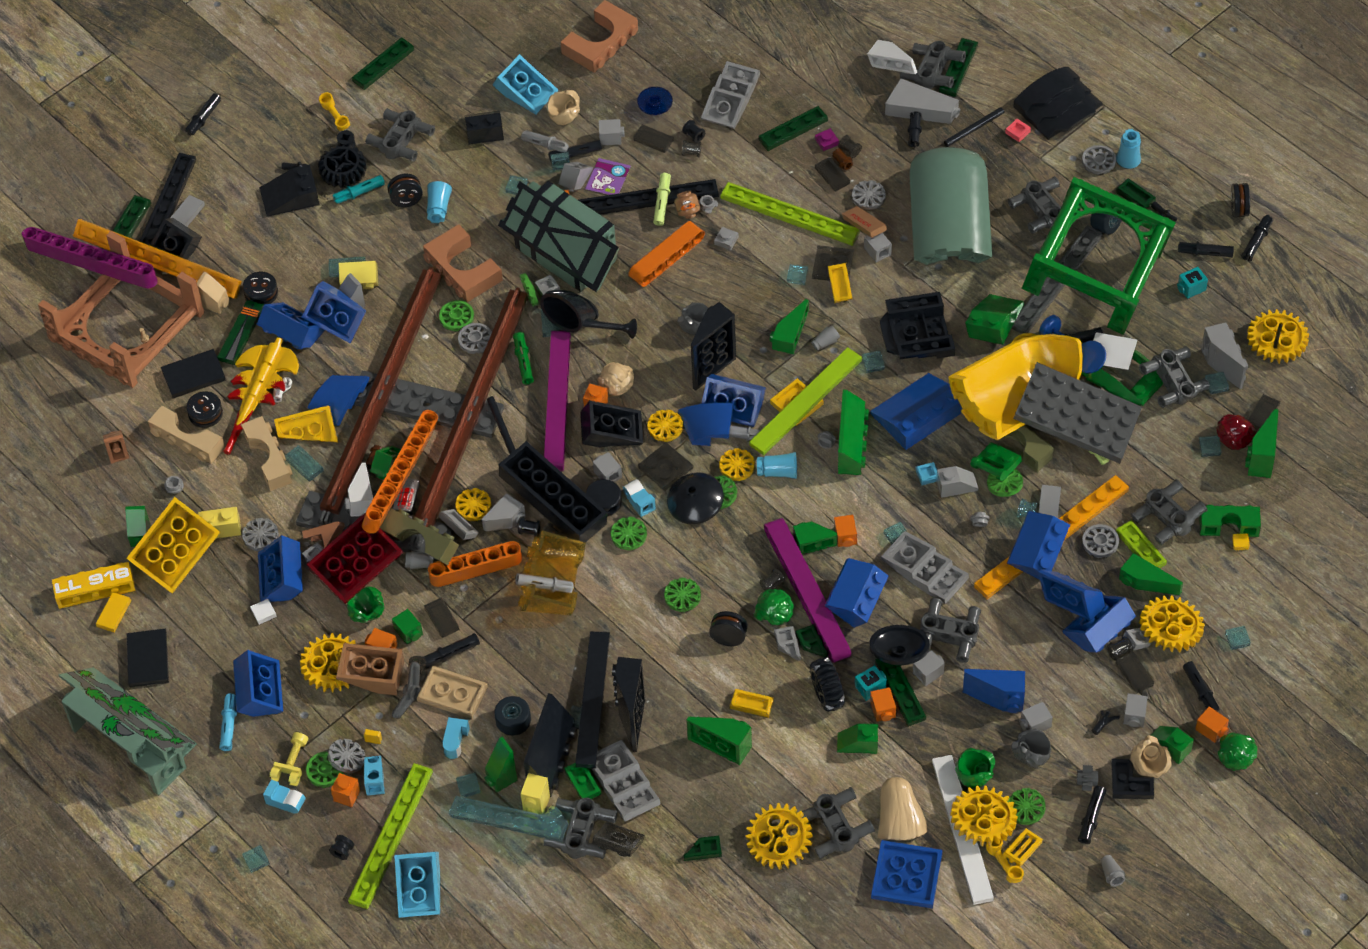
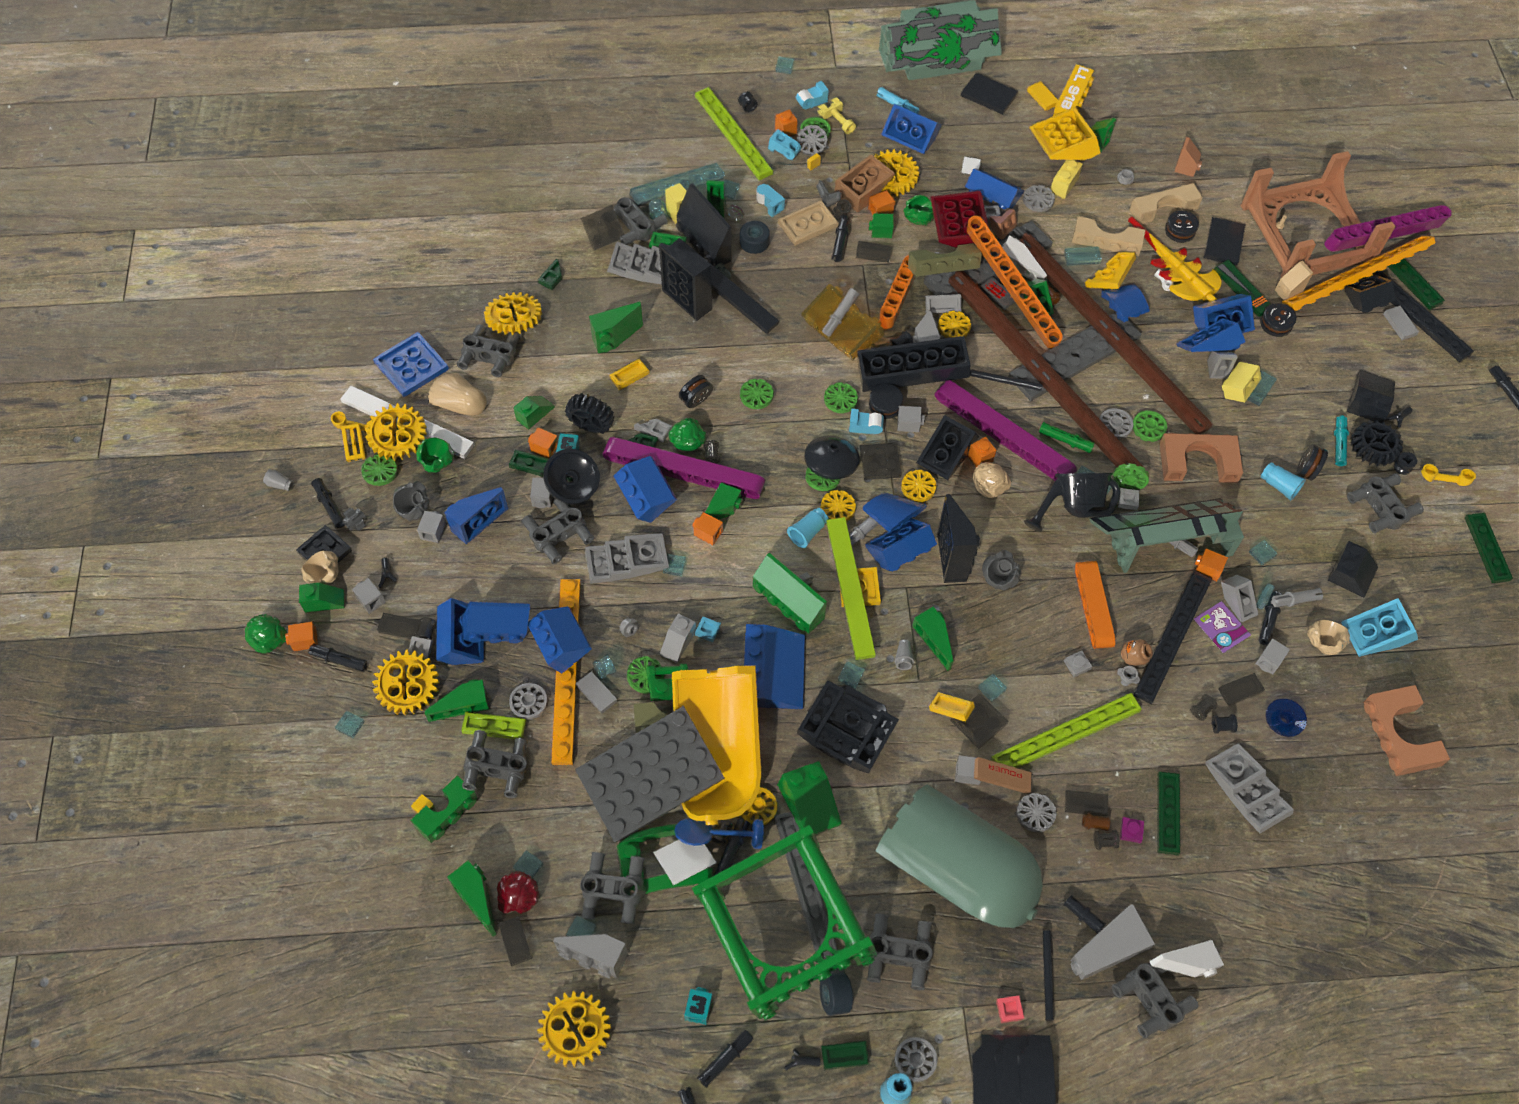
camera: 125 degrees right, 5 degrees up
(418, 884) = (685, 122): medium azure slope -> none
(662, 197) = (1157, 638): yellowish green axle -> none
(958, 69) = (1130, 1017): dark green tile -> none

